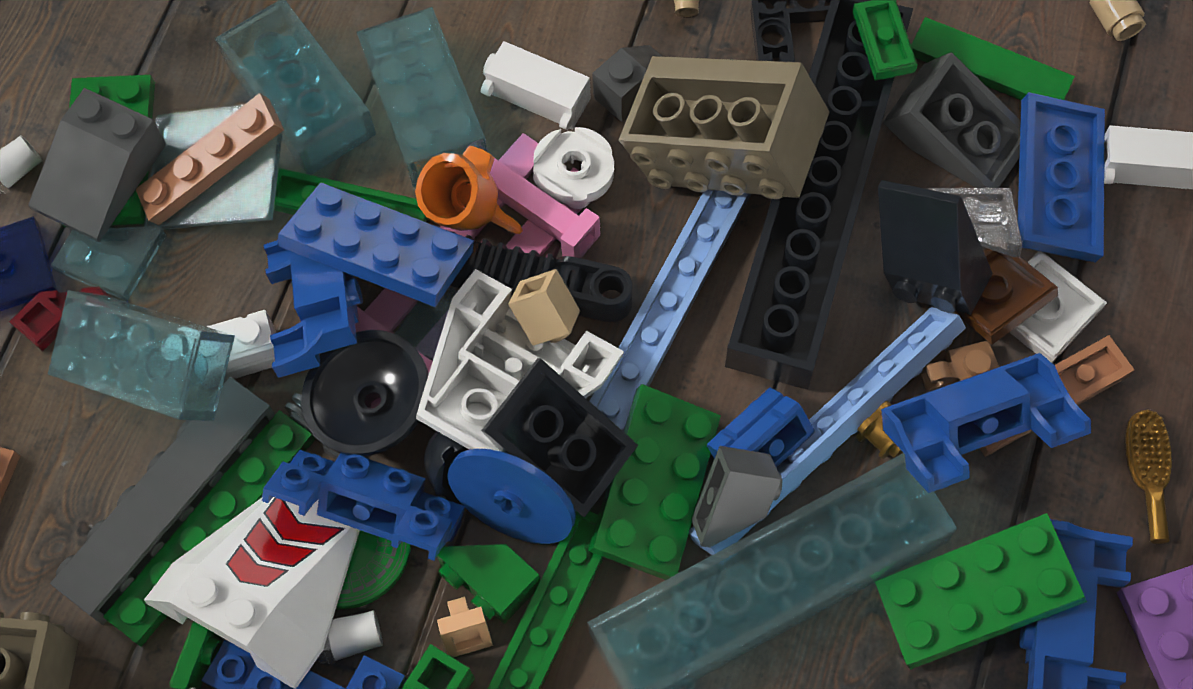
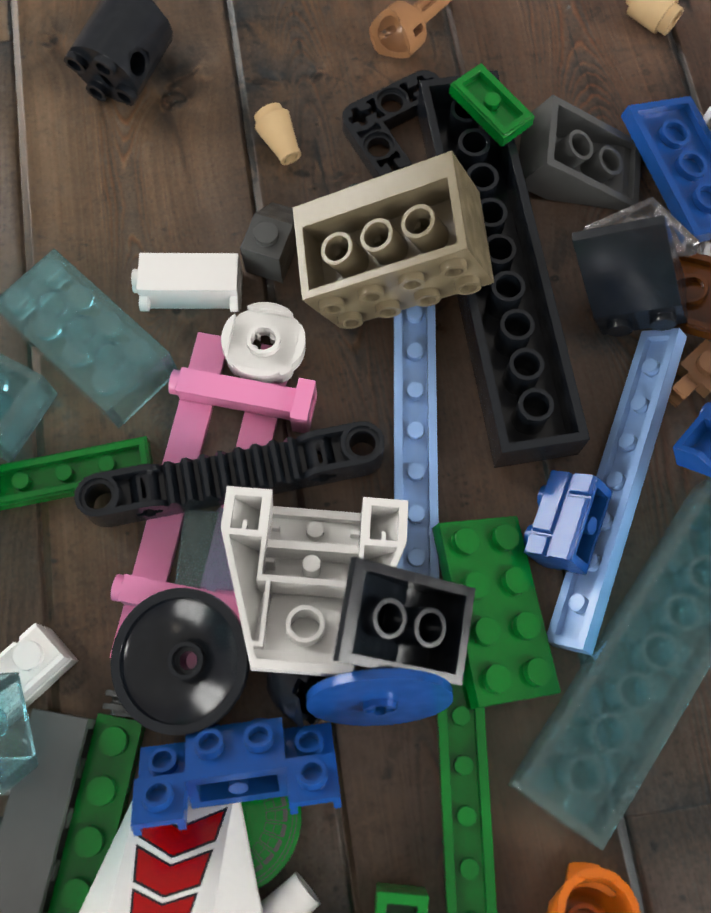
camera: 30 degrees left, 5 degrees up
(325, 304) = (85, 579): blue bracket -> none
(376, 244) = (116, 508): blue plate -> none
(461, 192) = (174, 415): orange piece -> none
(464, 629) = (393, 845): light nougat tile -> none
(492, 575) = (394, 779): green slope -> none
(544, 308) = (312, 493): tan brick -> none
(735, 494) = (584, 591): dark grey slope -> none
(873, 430) = (664, 464): pearl gold brick -> none
(990, 63) = (597, 96): green tile -> none

